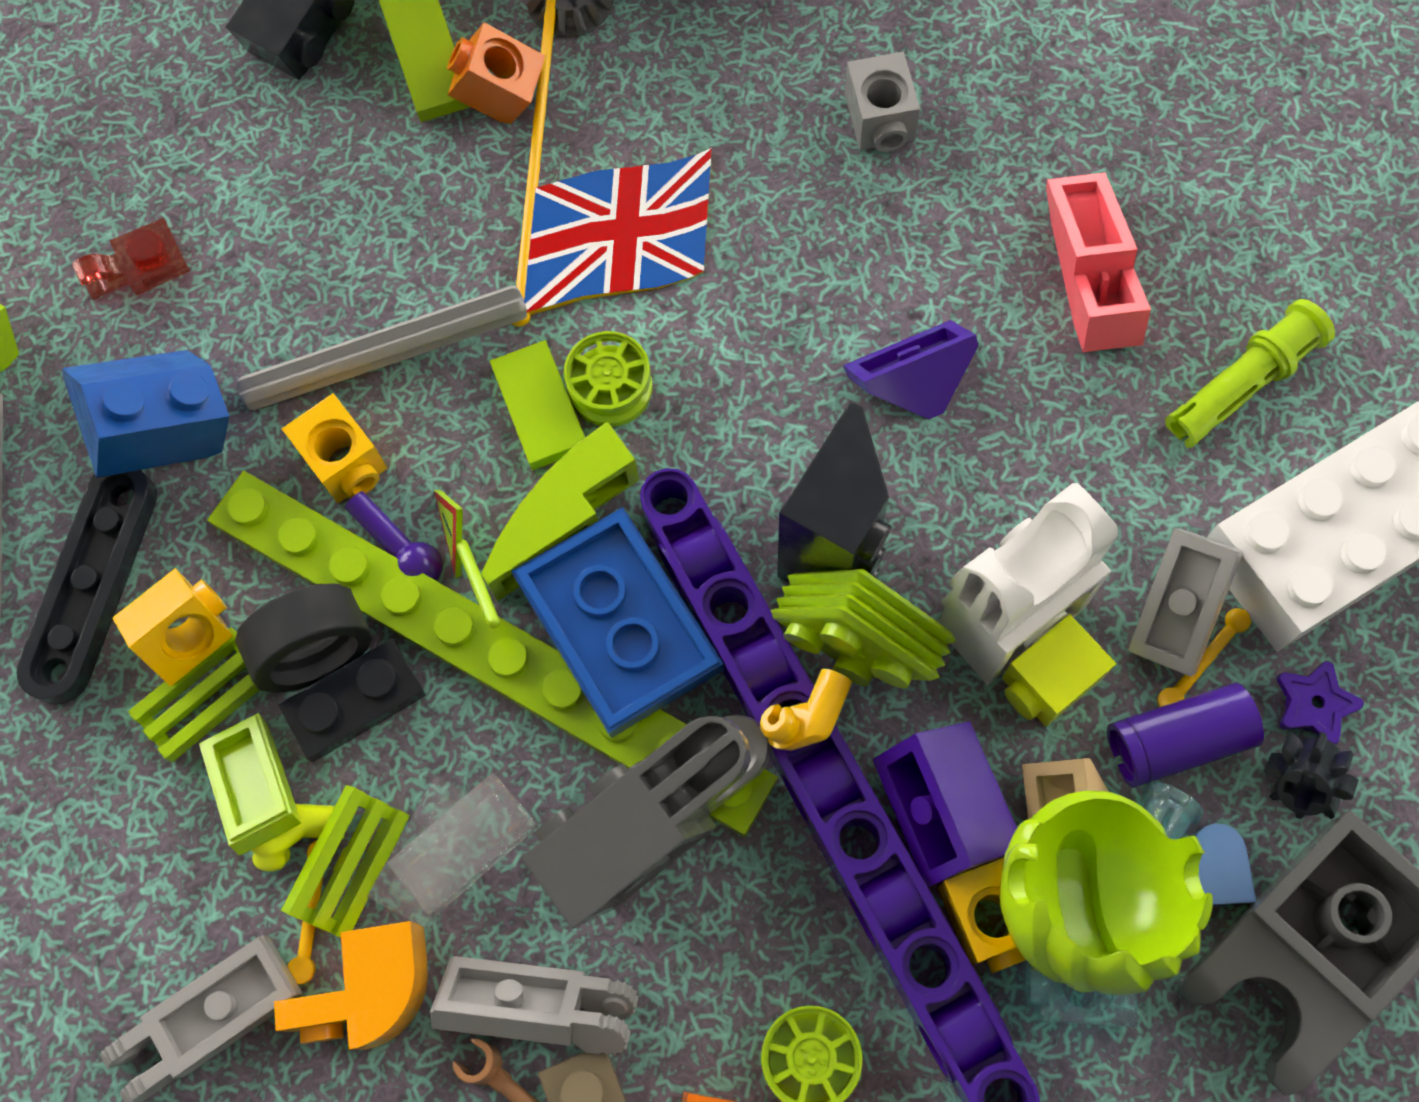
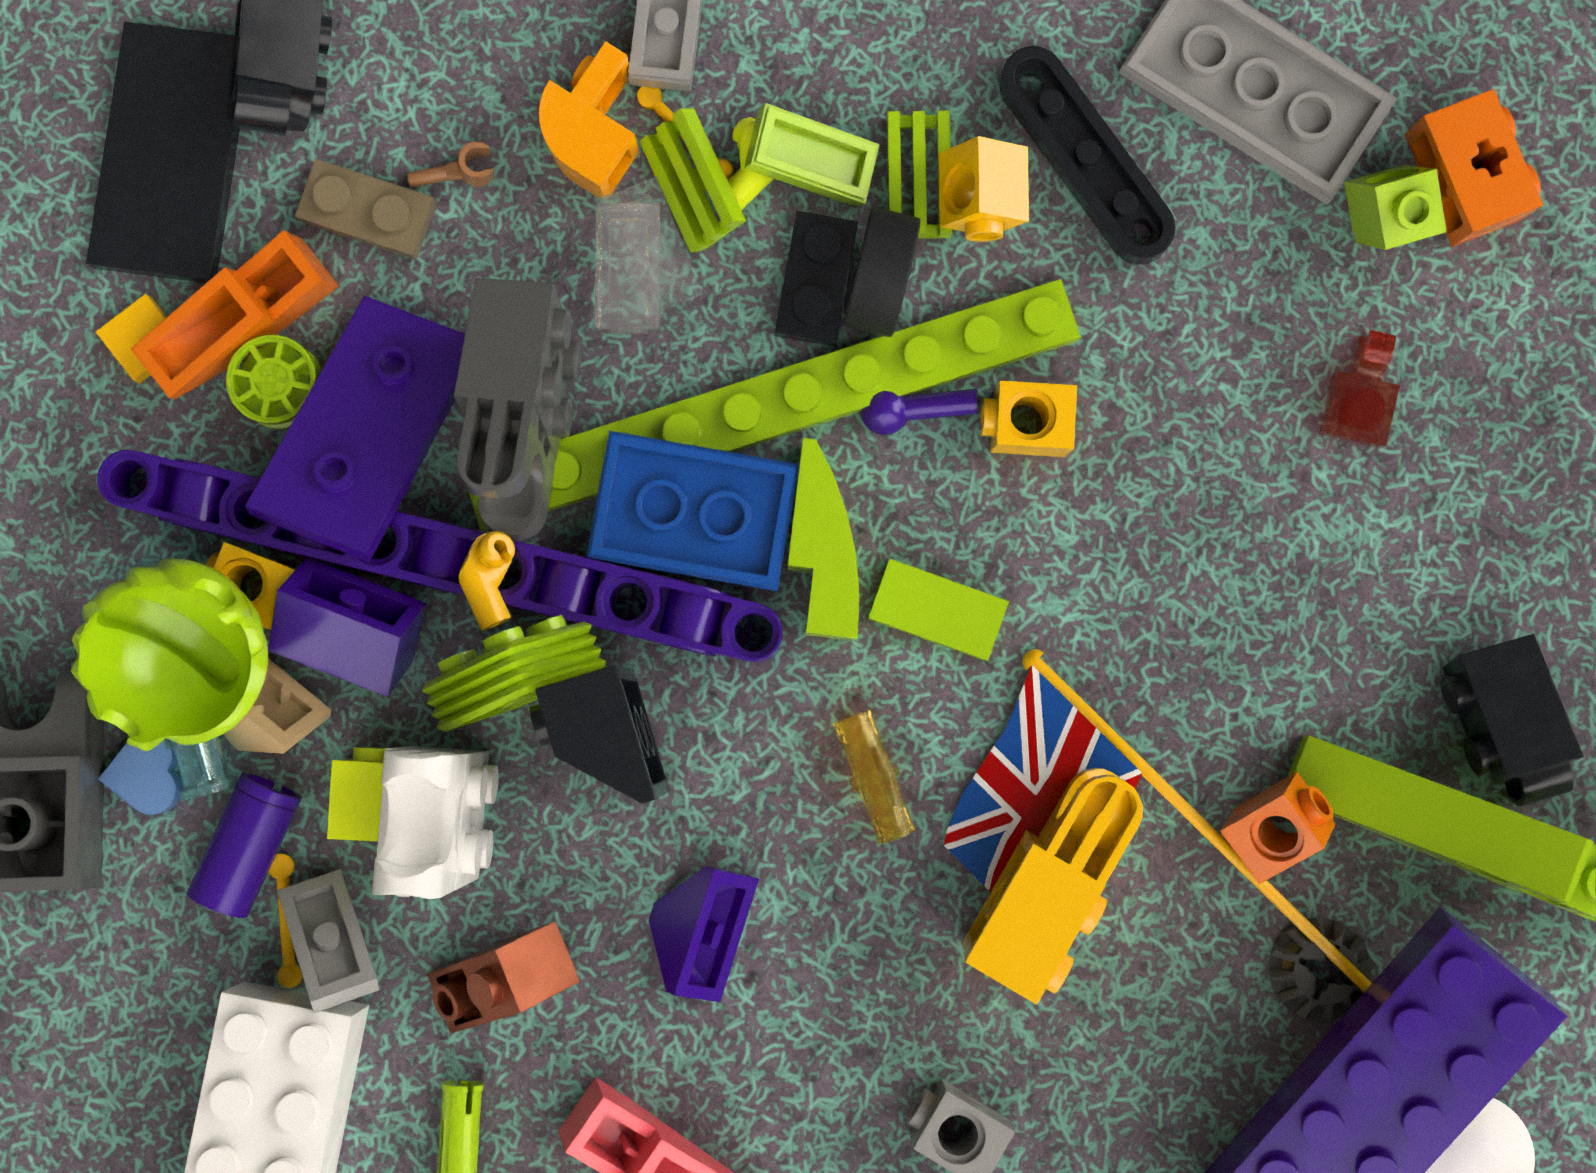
camera: 125 degrees right, 15 degrees up
(147, 411) = (1199, 300): blue slope -> none
(382, 348) = (1094, 528): light grey axle -> none
(460, 553) = (855, 443): lime piece -> none
(534, 1004) = (480, 227): light grey hinge -> none
(609, 380) = (907, 679): lime wheel -> none
(658, 158) = (1054, 886): none -> yellow brick
(697, 346) = (874, 776): none -> clear yellow pin
(780, 935) = (362, 430): none -> dark purple plate
(1081, 447) = (503, 978): none -> copper slope
(1299, 707) = (198, 961): dark purple plate -> none
(1327, 770) = (134, 902): black gear -> none

